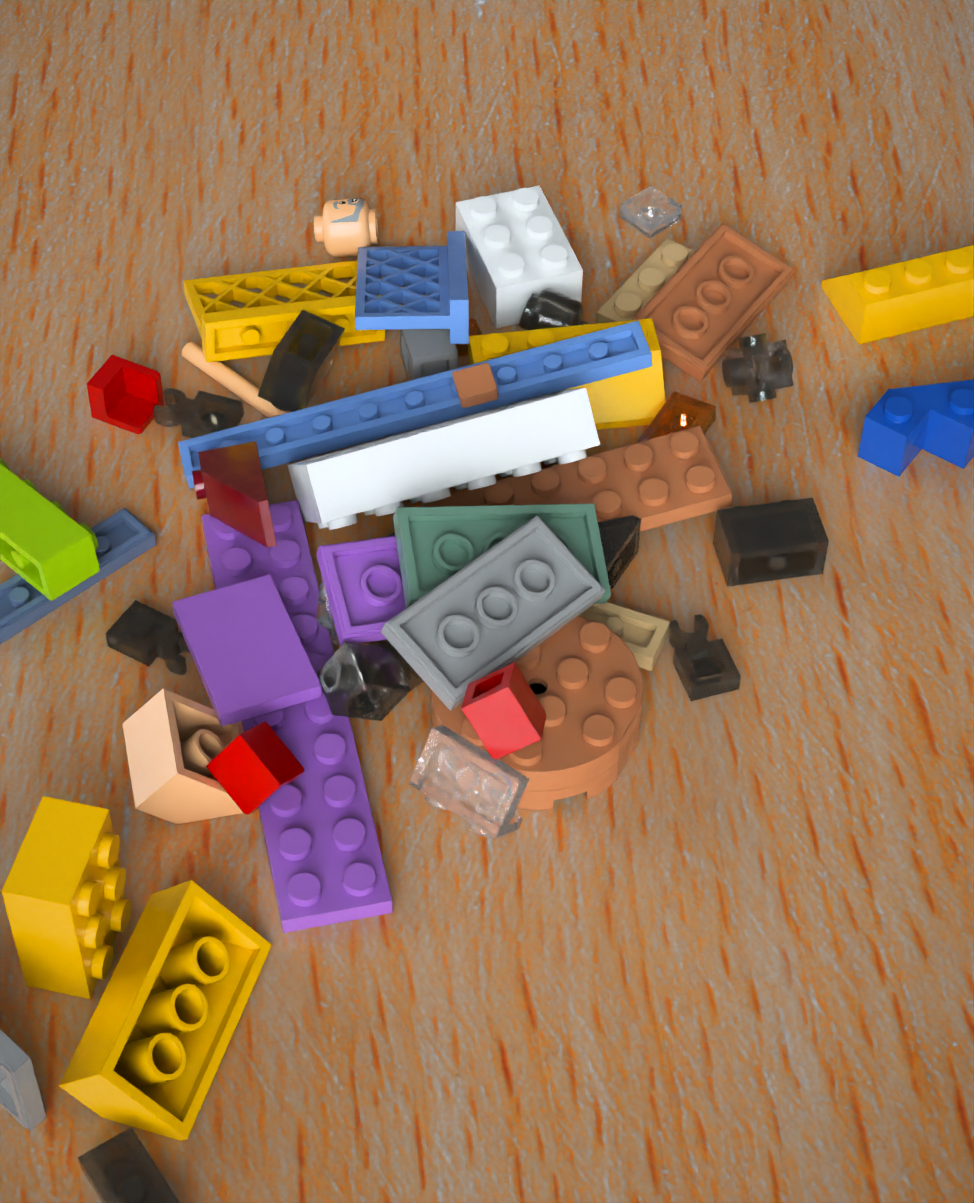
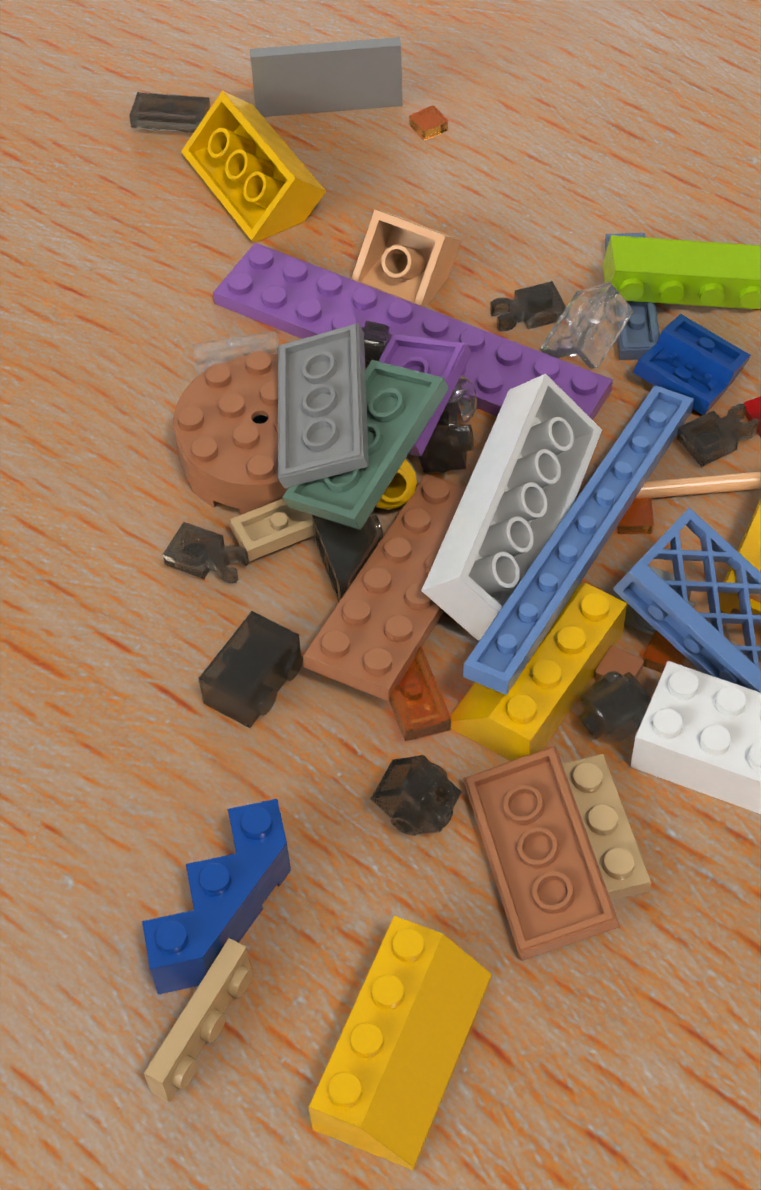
camera: 135 degrees right, 5 degrees up
(67, 897) = (341, 129): yellow brick -> none
(125, 478) = (692, 363): none -> blue slope
(153, 565) = (589, 325): none -> clear bracket
(236, 490) = (596, 380): dark red slope -> none
(246, 650) = (458, 313): medium lavender tile -> none
(254, 767) = (357, 268): red panel -> none
(300, 362) = (698, 484): clear smoke brick -> none
(475, 385) = (552, 548): nougat piece -> none
(504, 711) = (240, 354): panel -> none
(650, 211) = (699, 899): clear plate -> none

